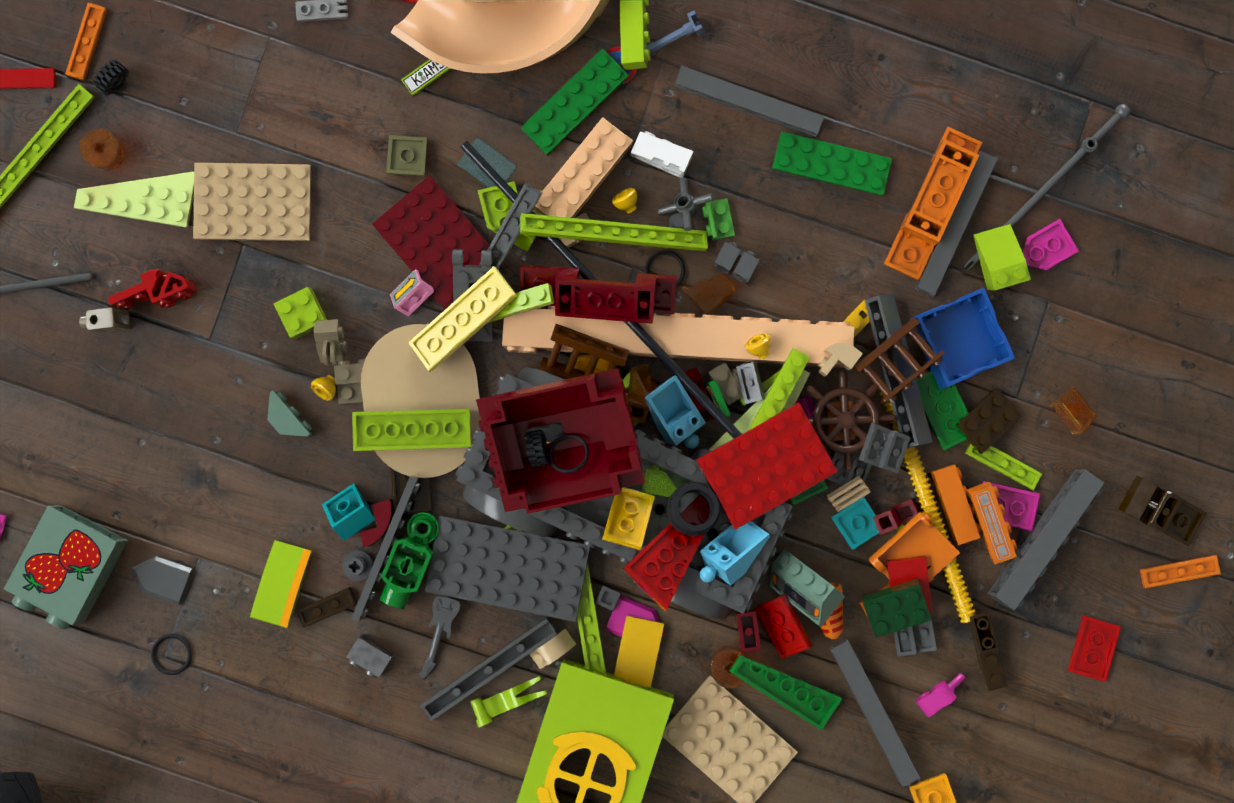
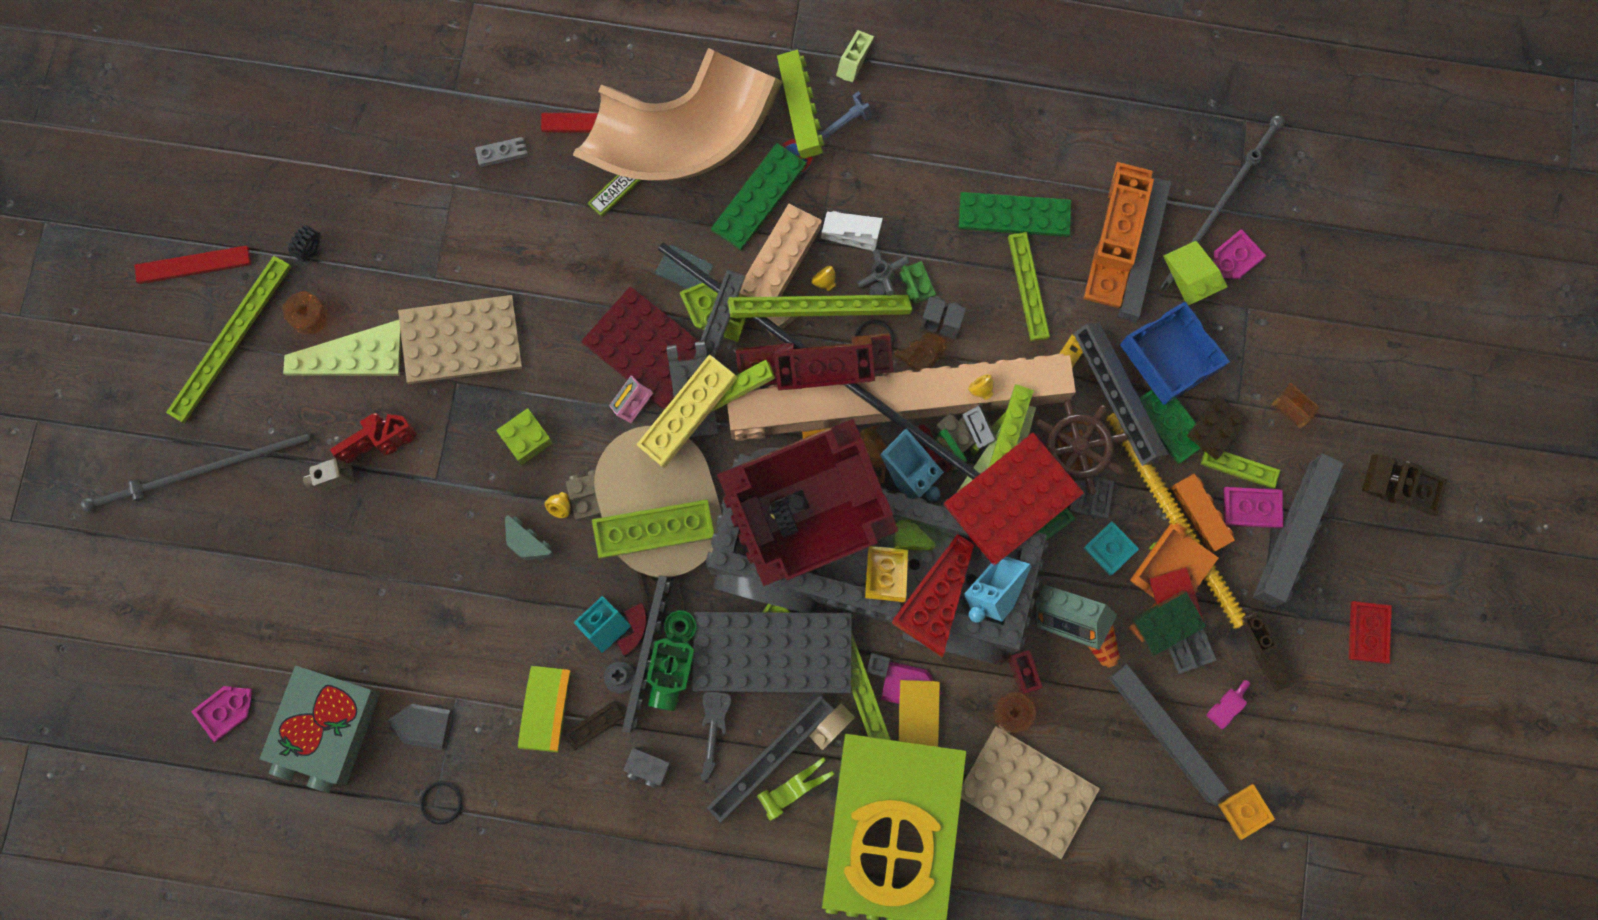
camera: 15 degrees left, 10 degrees down
(86, 41) = (276, 216): orange tile -> none
(330, 341) = (557, 457): dark tan brick -> none
(407, 155) = (605, 271): olive plate -> none
(563, 438) = (822, 532): black tyre -> none
(580, 342) = (807, 413): reddish brown fence -> none
(709, 496) = (958, 535): black tyre -> none
(749, 101) = (925, 169): dark grey tile -> none
(783, 626) = (1059, 662): red tile -> none
(798, 696) = (1087, 729): green wing -> none
(830, 242) = (1028, 287): none -> lime tile
(842, 353) = (1062, 380): tan brick -> none
(850, 495) = (1098, 523): tan tile -> none
(881, 355) = (1112, 362): reddish brown fence -> none
(884, 448) = (1123, 466): dark grey slope -> none
(896, 516) = (1147, 534): dark red brick -> none
(991, 522) = (1242, 522): orange brick -> none
(1180, 571) = (1435, 542): orange tile -> none

